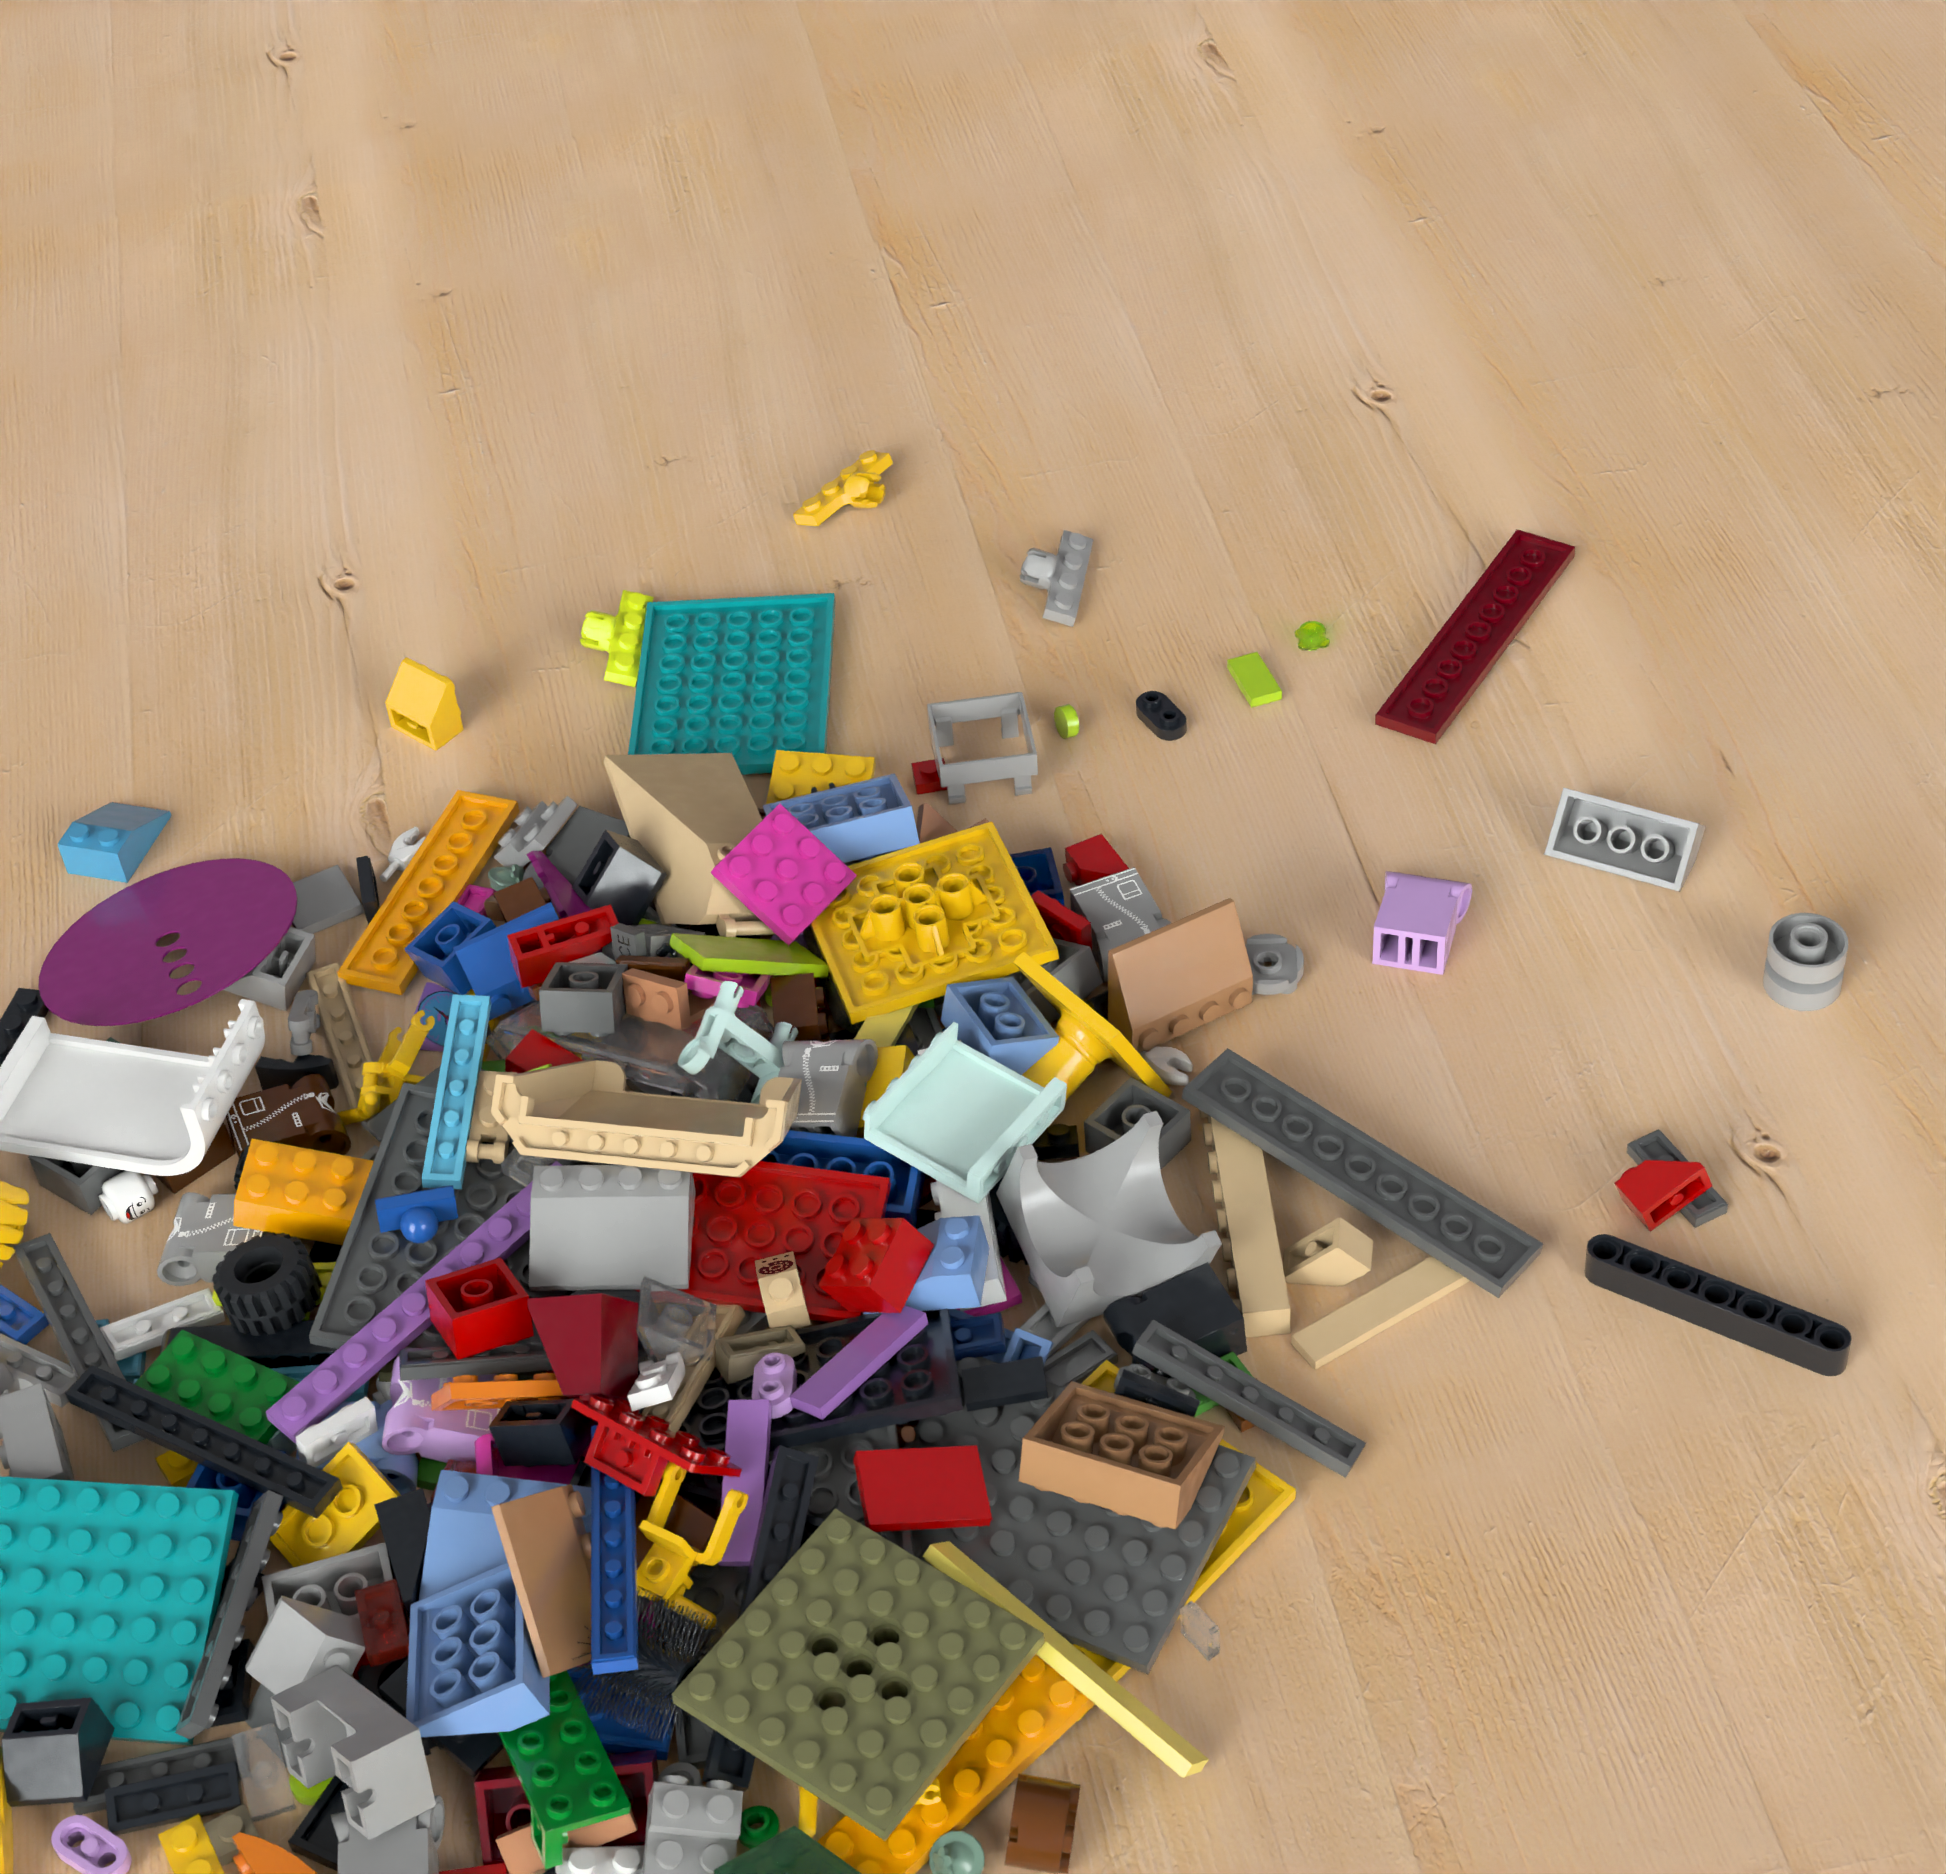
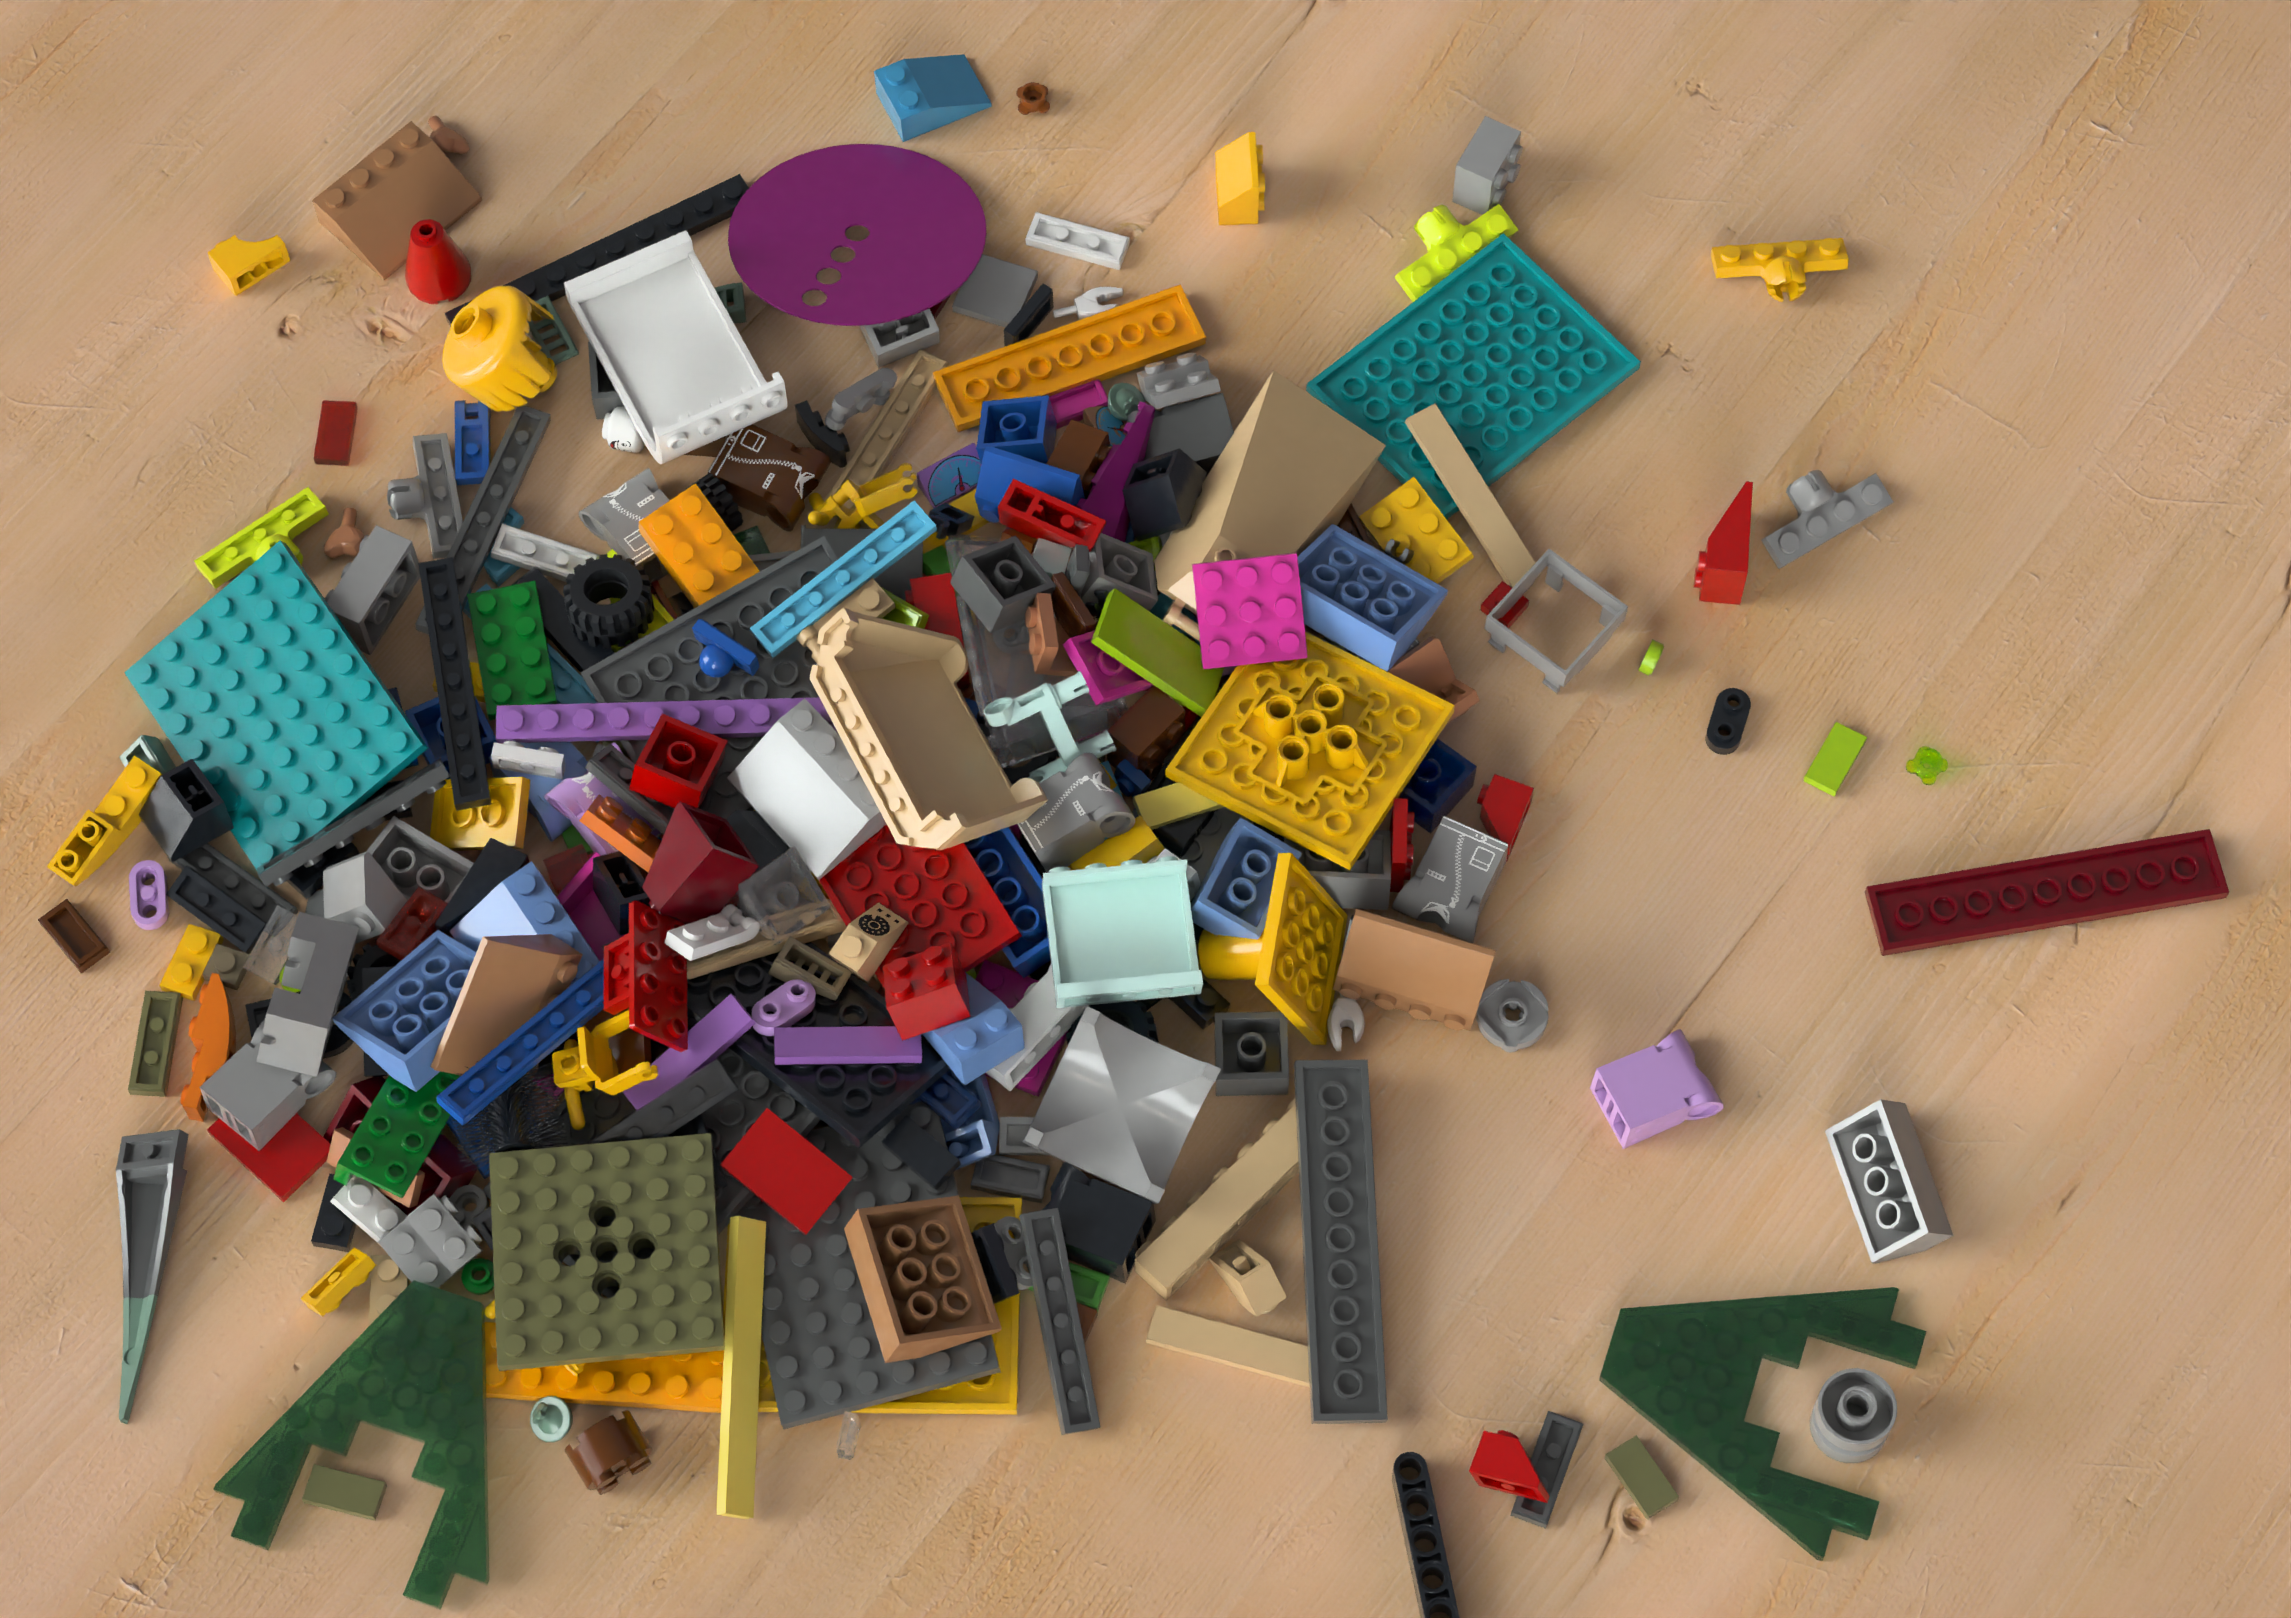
camera: 45 degrees right, 20 degrees up
(200, 784) = (1032, 91): none -> dark orange plate
(343, 831) = (1077, 241): none -> white tile
(590, 572) = (1487, 166): none -> light grey brick
(828, 732) = (1471, 494): none -> tan tile
(1039, 627) = (1724, 563): none -> red slope
(1678, 1043) = (1695, 1374): none -> clear green wing
(1737, 1124) = (1641, 1477): none -> olive tile

